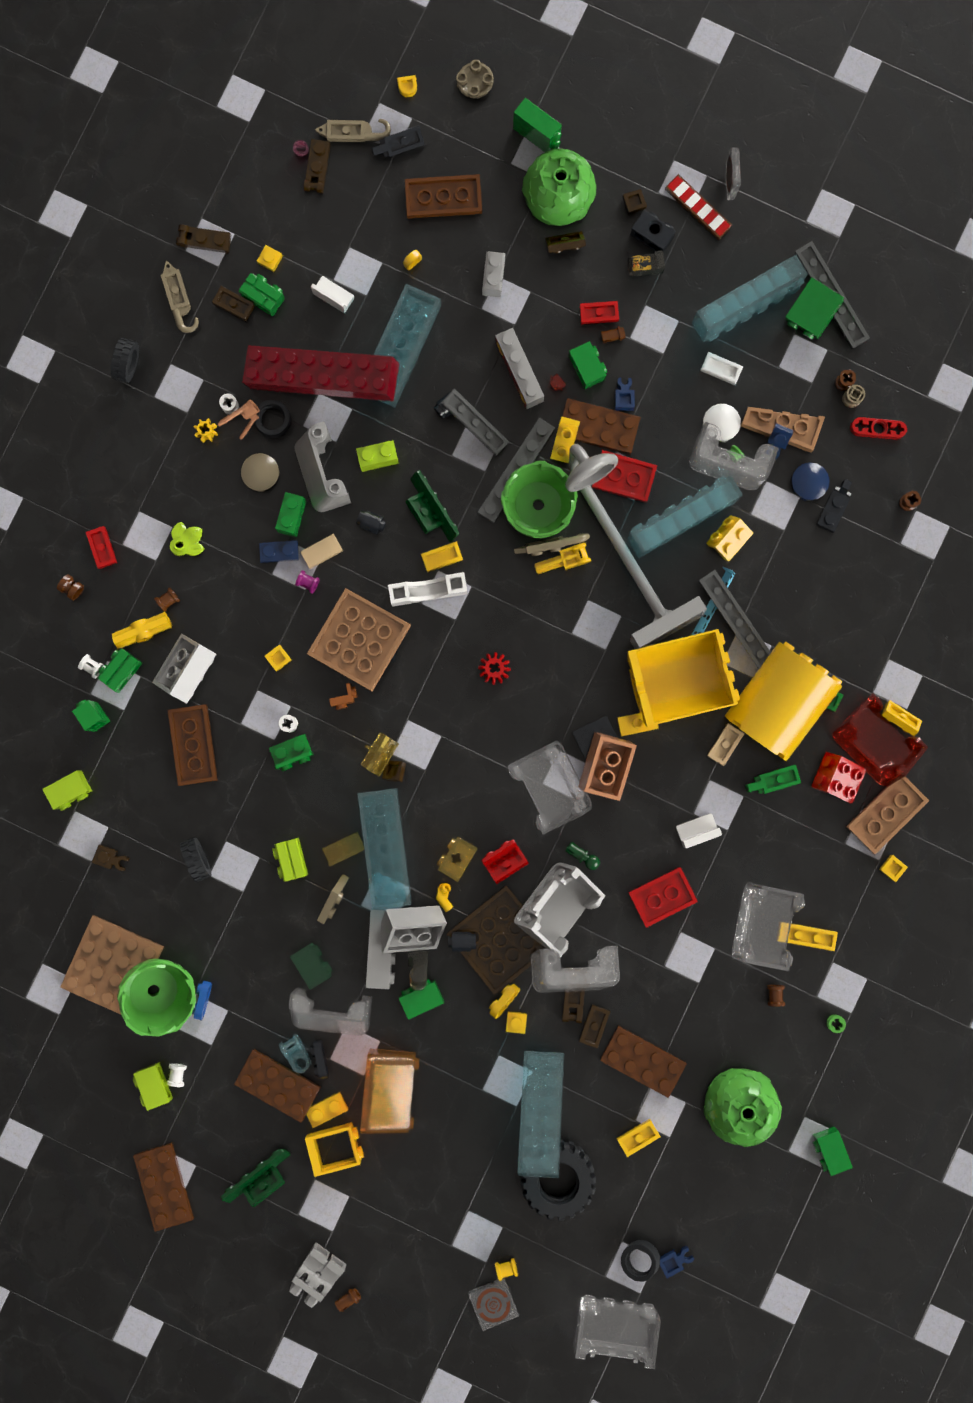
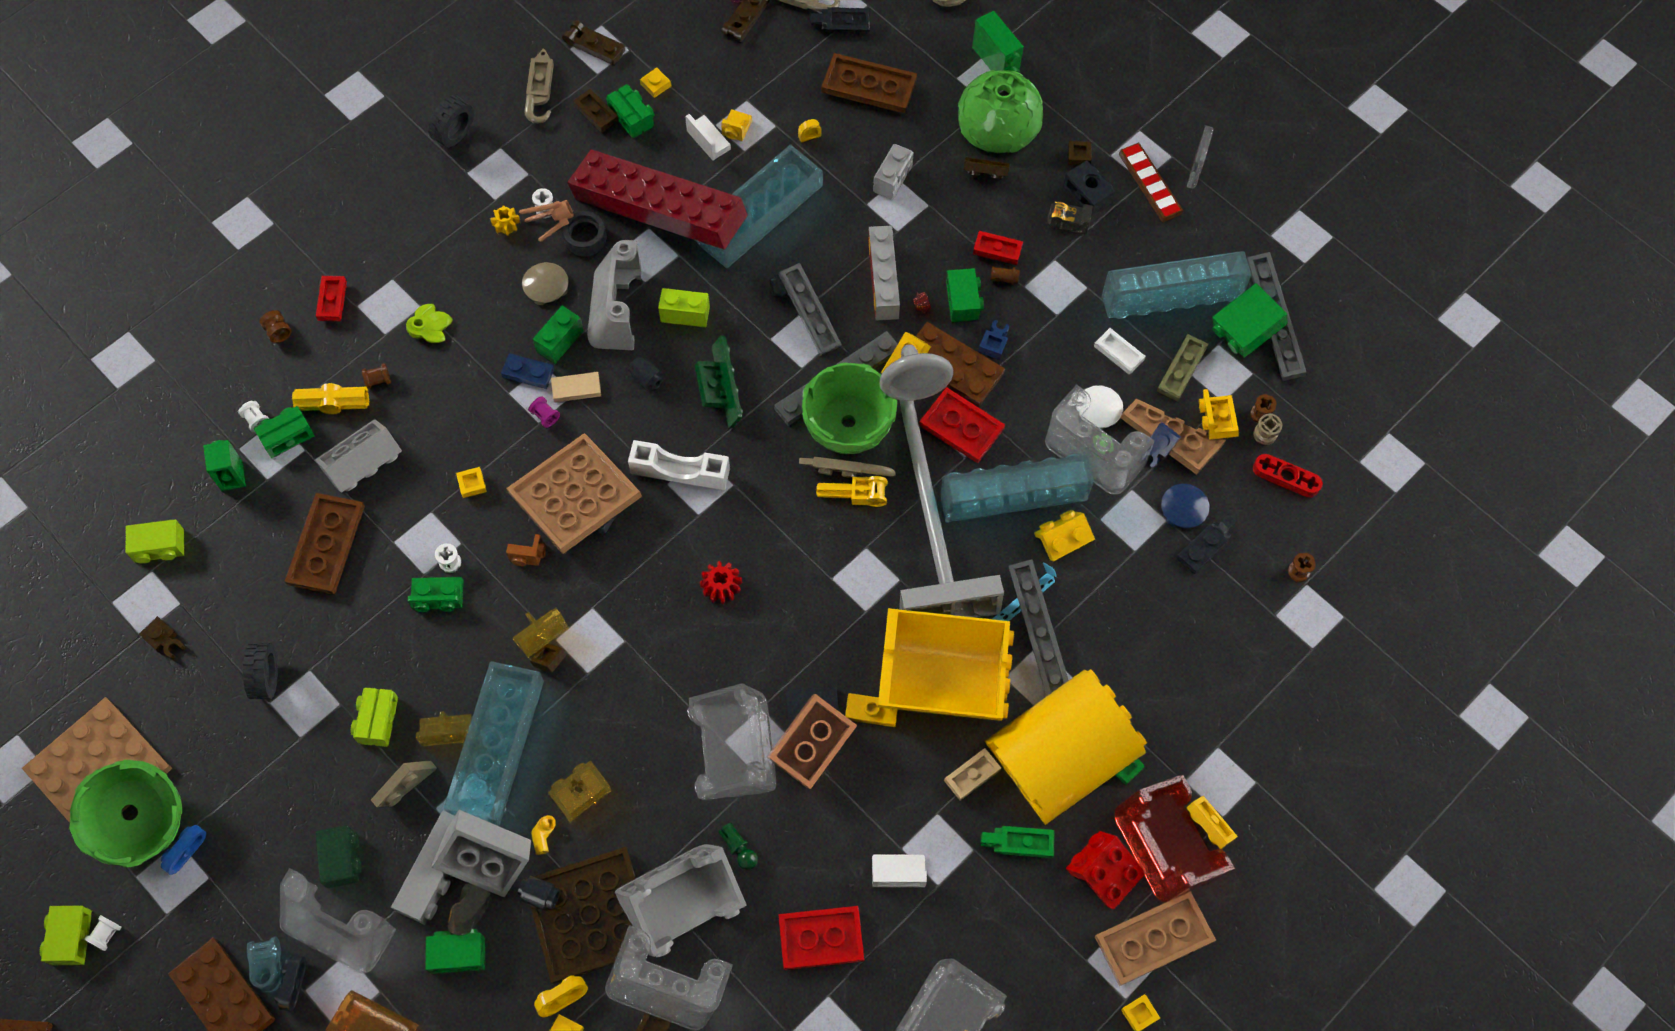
camera: 20 degrees right, 20 degrees down
(351, 275) = (736, 125): none -> yellow bracket
(441, 556) = (711, 440): yellow tile -> none
(504, 861) = (636, 815): red bracket -> none
(773, 365) = (1182, 367): none -> olive tile
(815, 399) = (1219, 416): none -> yellow bracket

